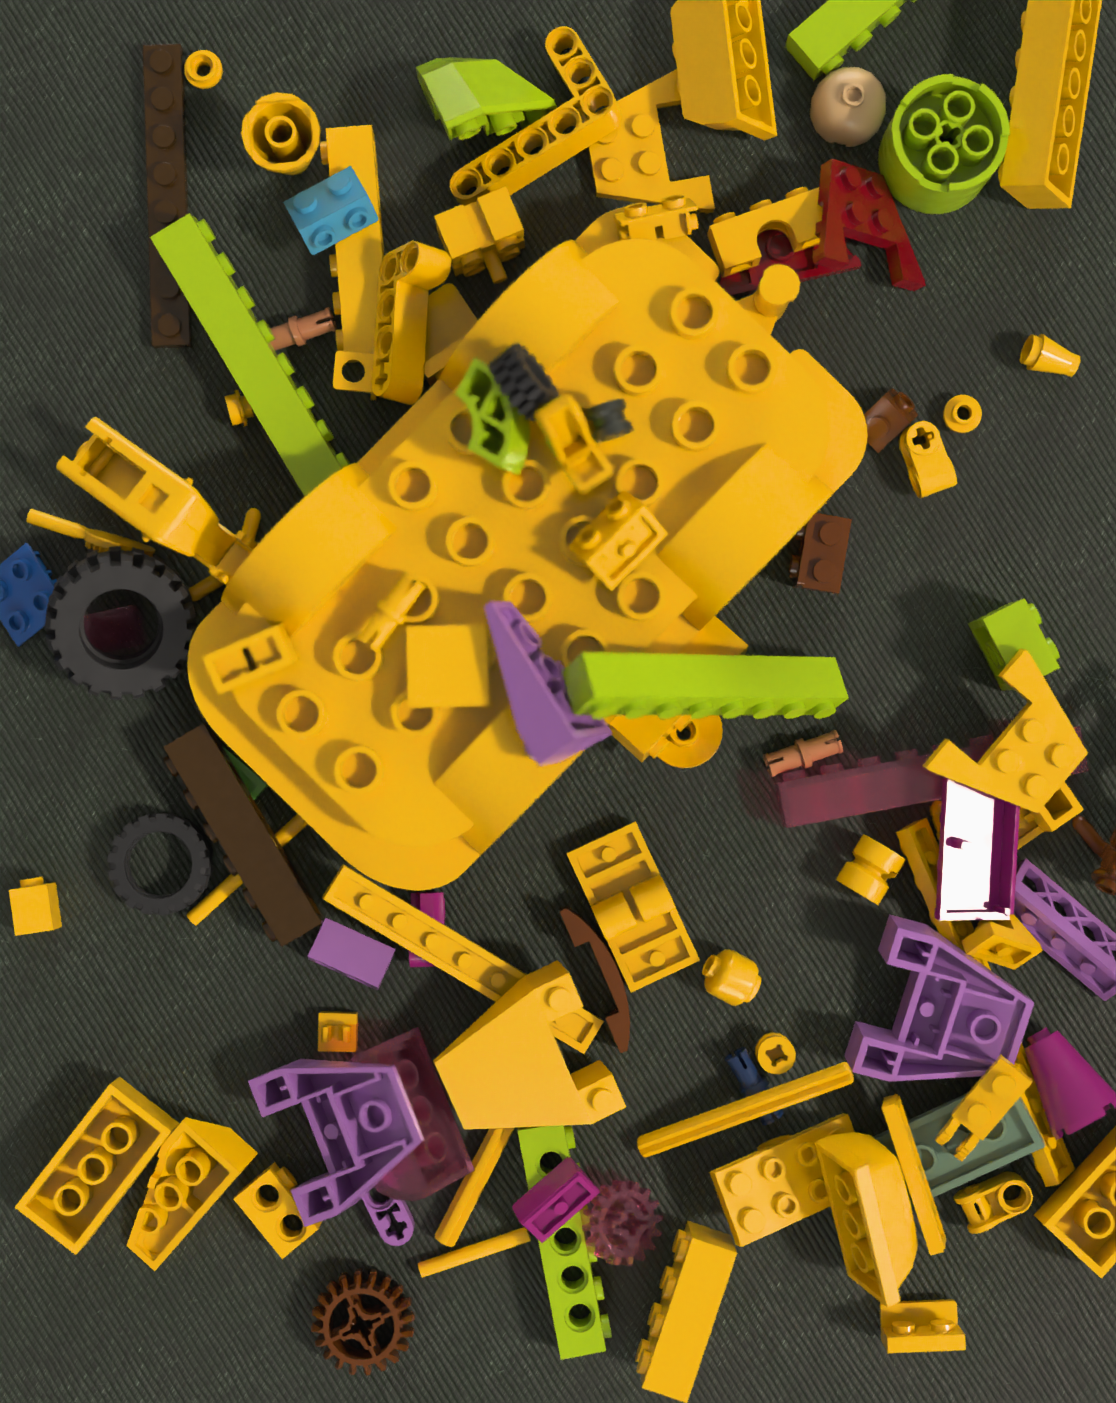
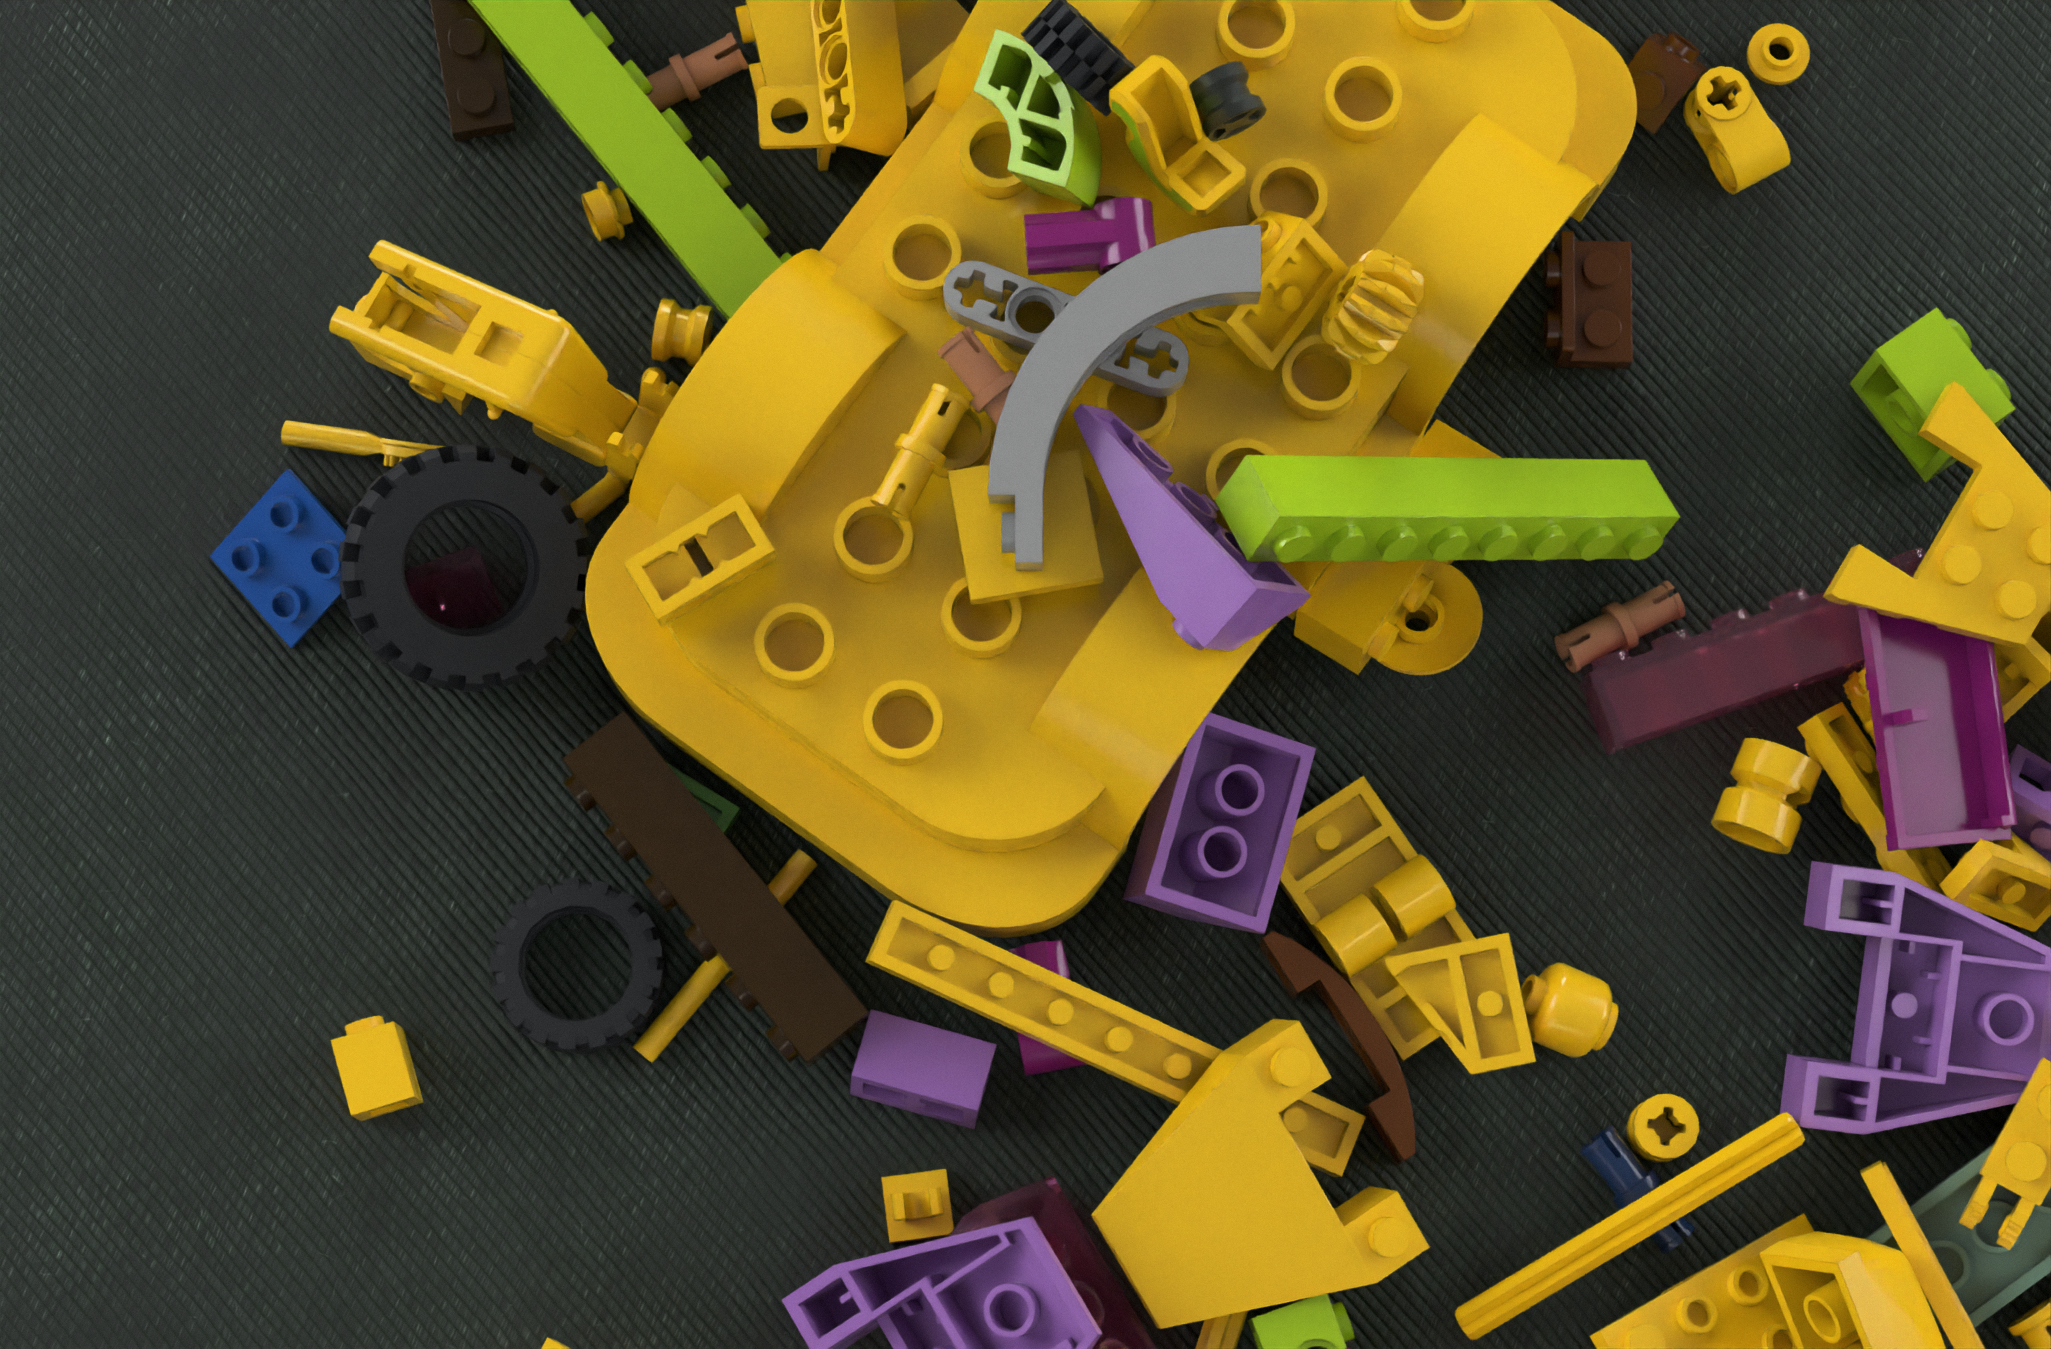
camera: 10 degrees left, 10 degrees down
(273, 491) = (681, 332): none -> yellow wheel
(441, 581) = (978, 372): none -> nougat pin
(493, 543) = (1025, 290): none -> light grey beam
(524, 496) = (1089, 238): none -> magenta piece
(532, 541) = (1137, 294): none -> light grey arch
(547, 844) = (1221, 826): none -> medium lavender slope
(675, 966) = (1471, 1000): none -> yellow wing
(677, 565) = (1372, 307): none -> yellow gear

